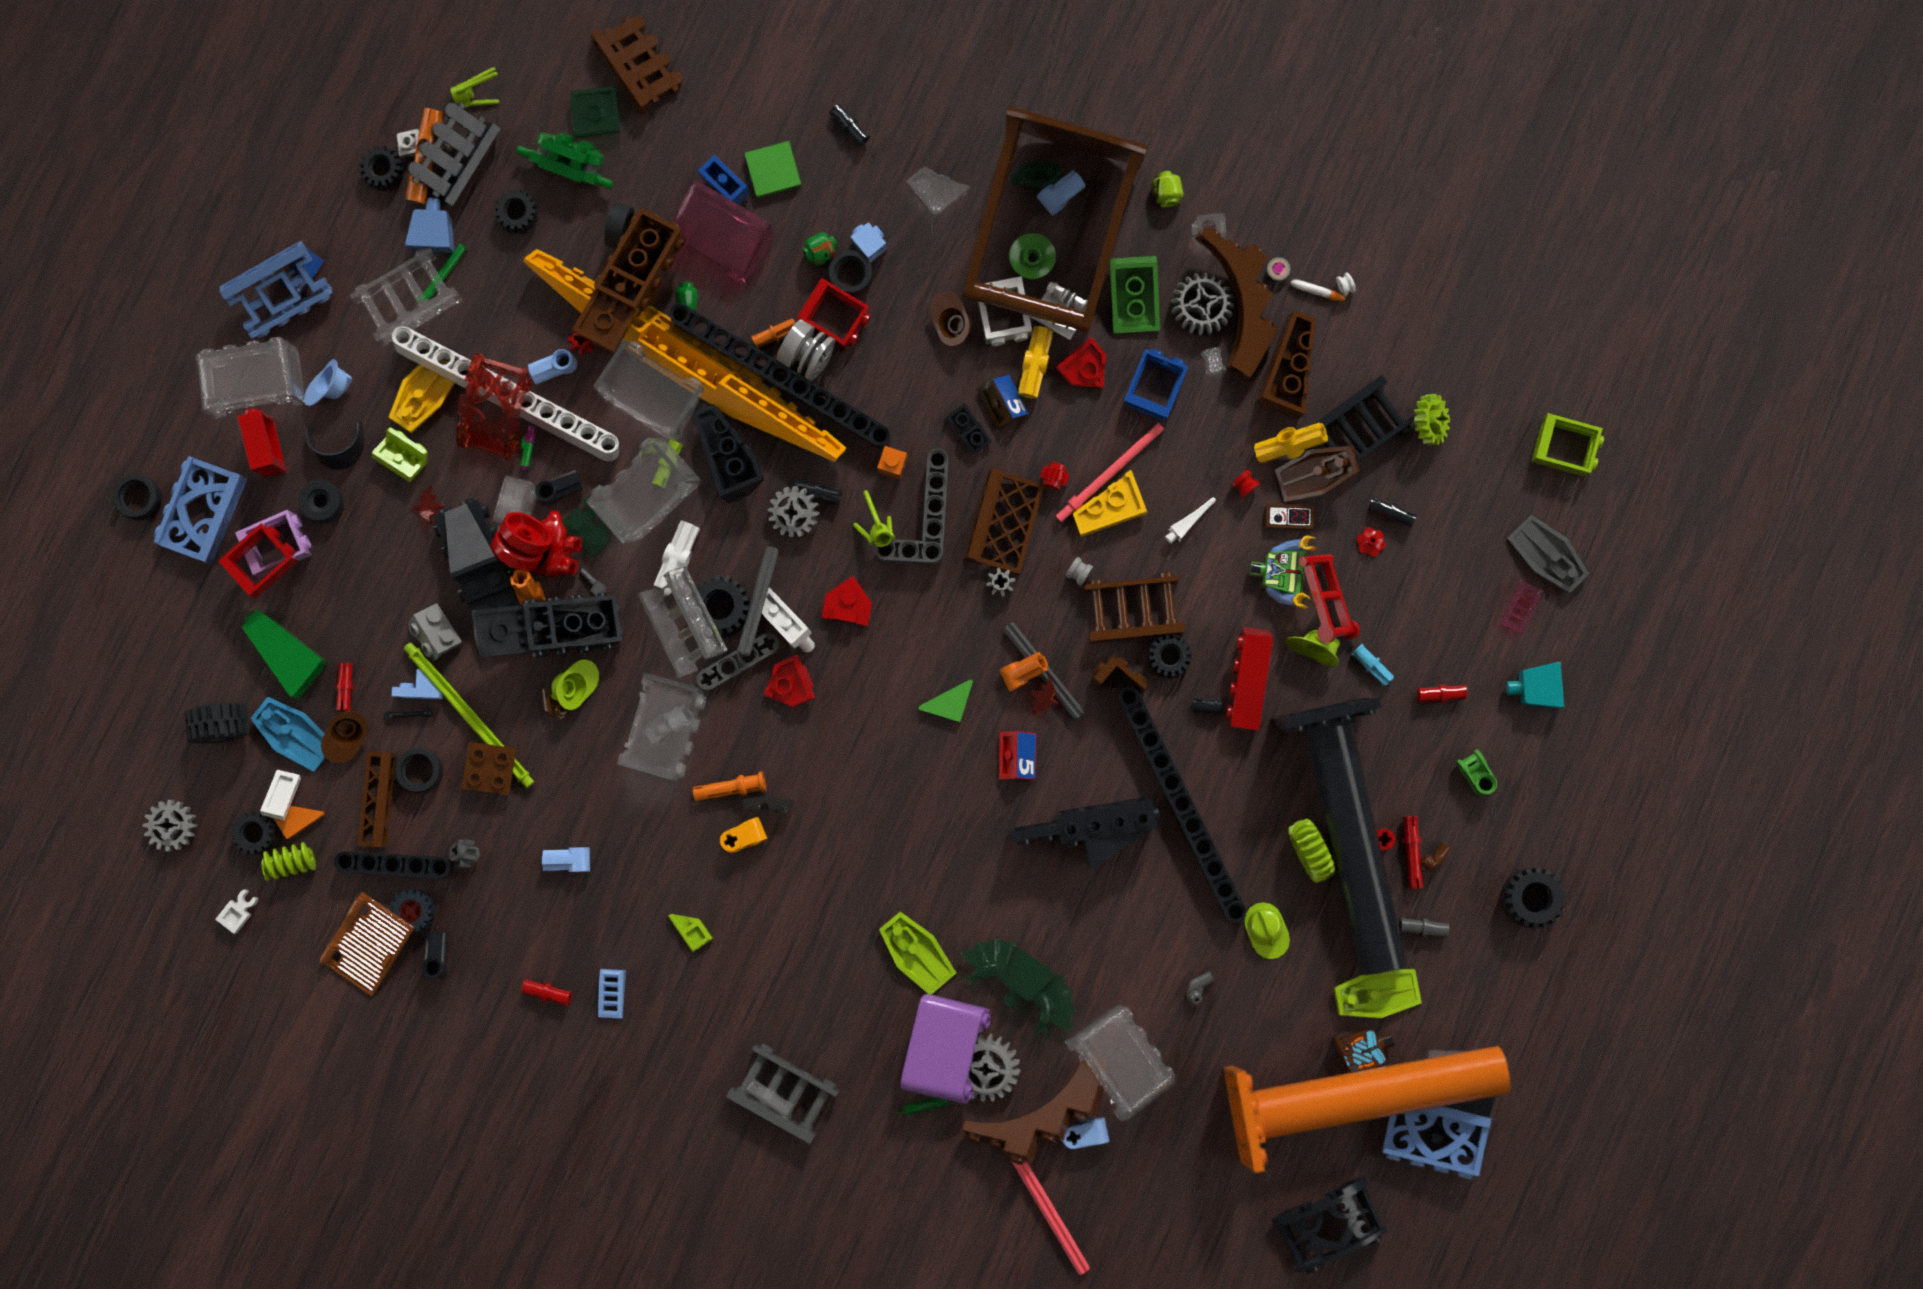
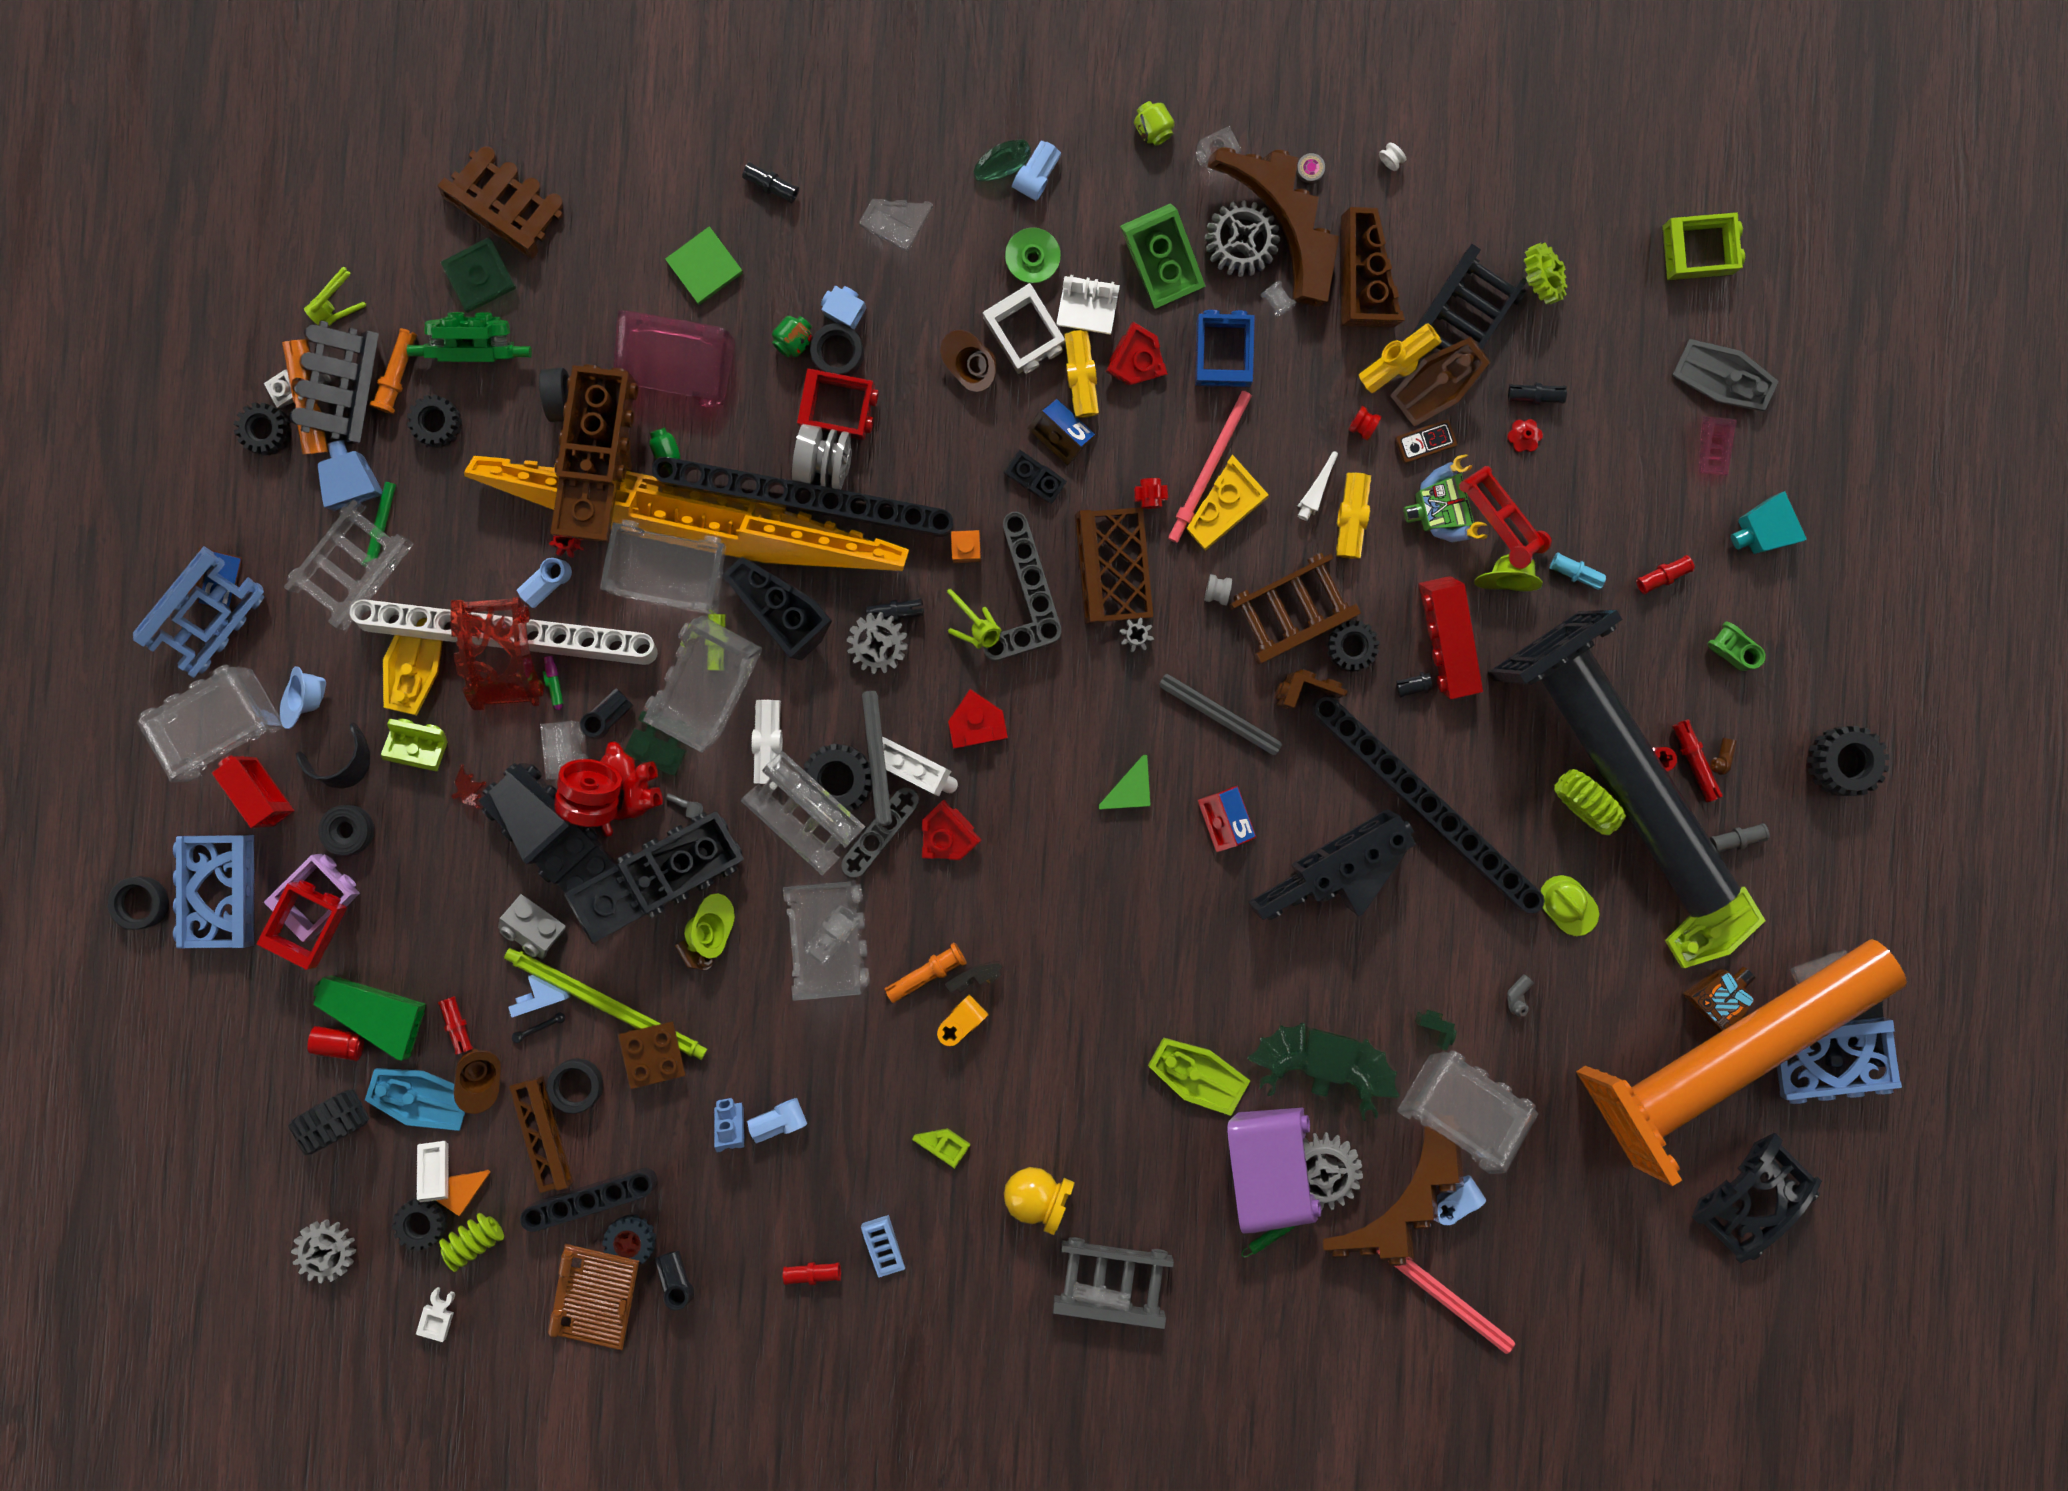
camera: 25 degrees left, 5 degrees up
(245, 665) = (335, 1043): none -> red piece
(464, 853) = (661, 1158): dark grey gear -> none
(494, 169) = (390, 384): none -> orange pin
(526, 587) = (614, 841): orange piece -> none
(527, 847) = (728, 1125): none -> medium blue hips
(723, 180) = (653, 298): blue brick -> none
(748, 998) = (1036, 1197): none -> yellow tile
(773, 334) = (777, 451): orange axle -> none
(1020, 672) = (1196, 727): orange piece -> none
(1045, 697) = (1233, 743): clear red piece -> none
(1077, 138) = (1041, 100): reddish brown piece -> none
(1122, 980) = (1434, 1020): none -> clear green bracket
(1209, 553) = (1353, 515): none -> yellow piece
(1318, 290) = (1363, 175): white piece -> none

